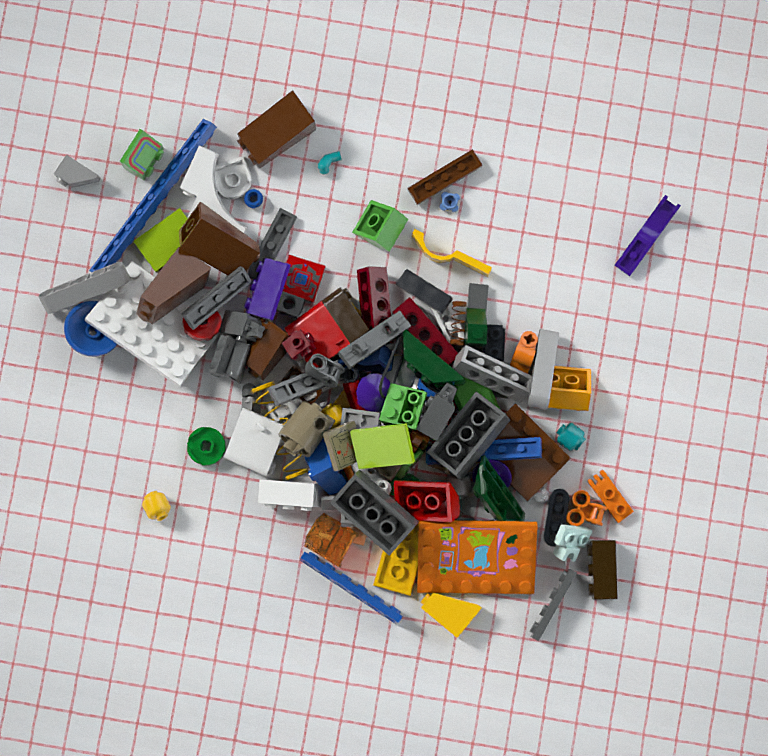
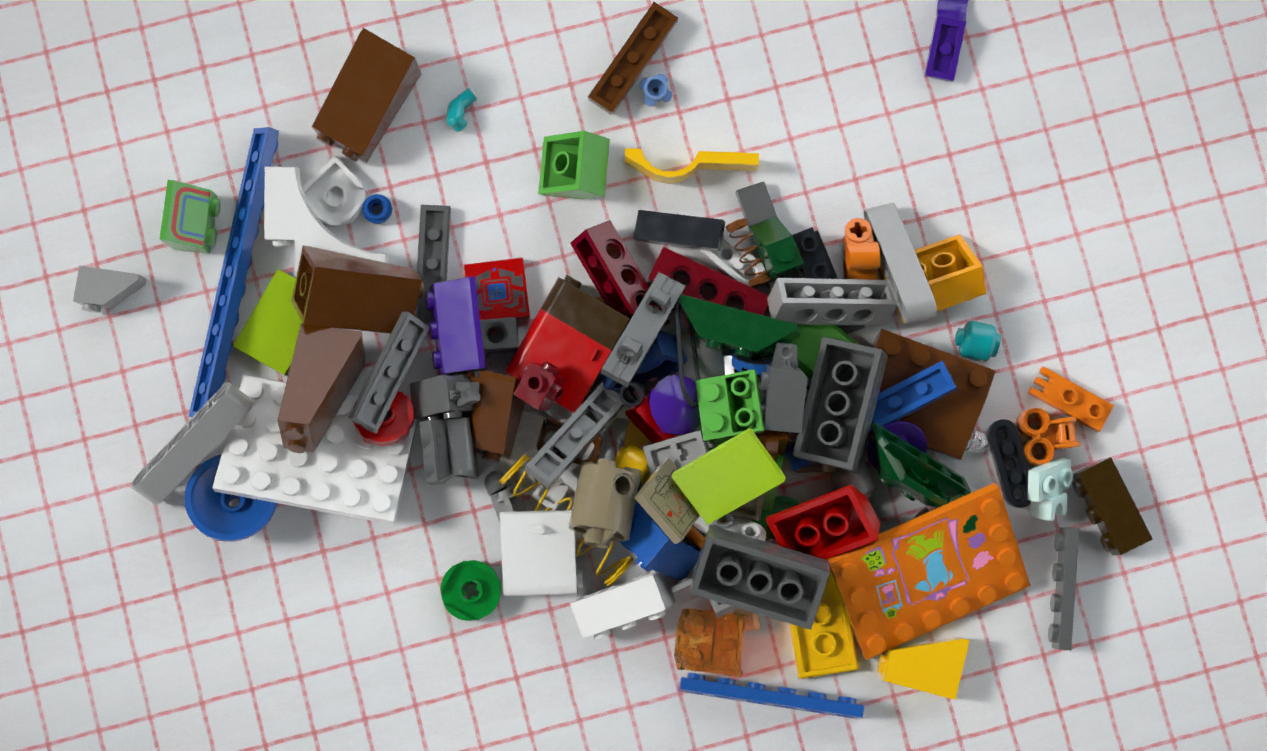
camera: 30 degrees left, 0 degrees up
(156, 506) = (438, 709): yellow head -> none
(327, 370) = (595, 405): dark grey piece -> none

